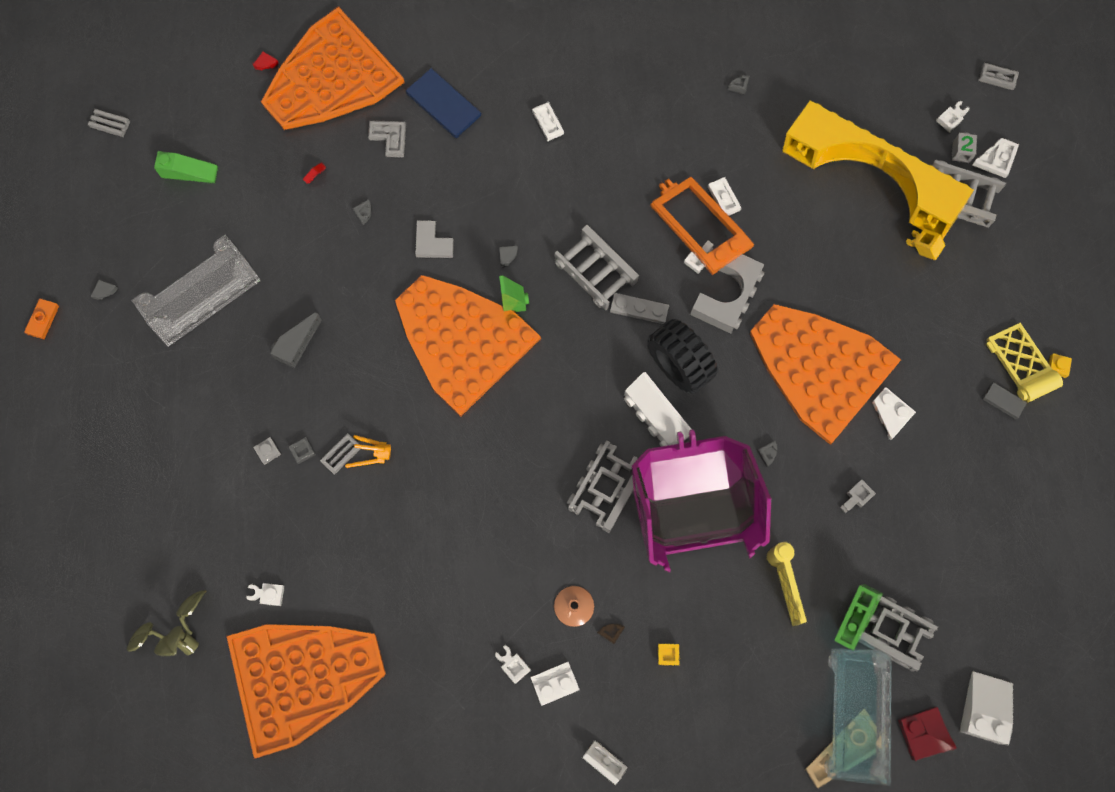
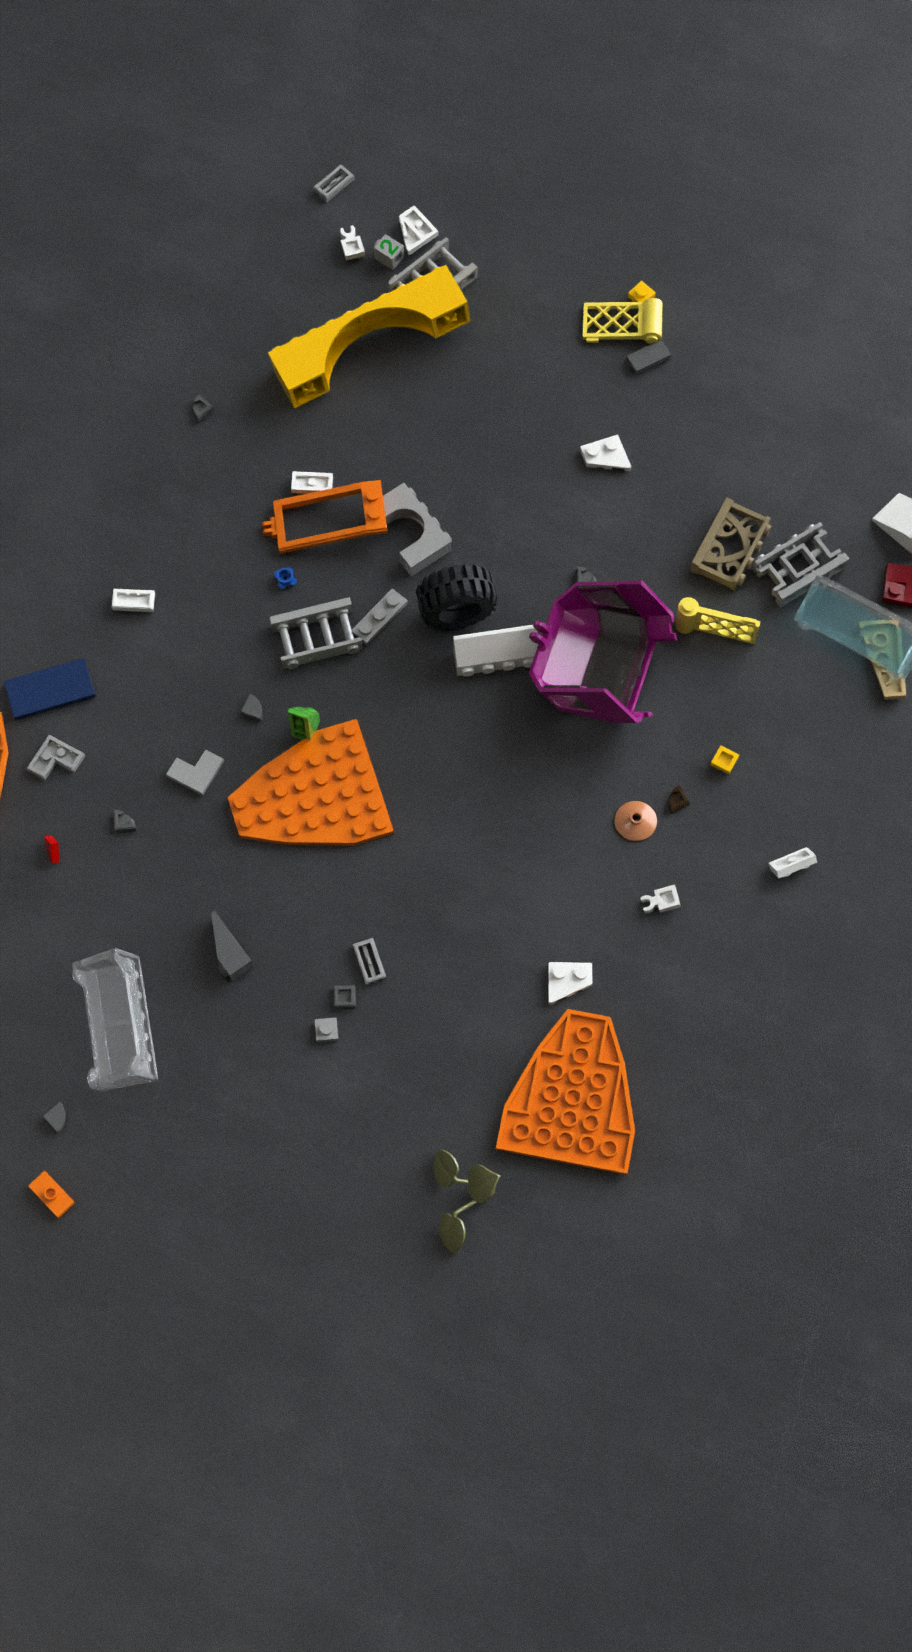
camera: 60 degrees left, 5 degrees down
(269, 594) = (474, 1092): white plate -> none
(381, 451) = (388, 921): light orange plant -> none
(403, 621) = (567, 979): none -> white wing
(554, 683) = (698, 872): white plate -> none
(592, 478) = (551, 721): light grey fence -> none
(631, 215) = (285, 572): none -> blue plate
(692, 260) = (362, 543): white plate -> none
(821, 366) = (528, 490): orange piece -> none
(858, 616) = (778, 579): bright green slope -> none
(859, 495) = (668, 522): light grey plate -> none
(891, 540) = (723, 519): none -> dark tan fence
(927, 243) = (465, 334): yellow brick -> none

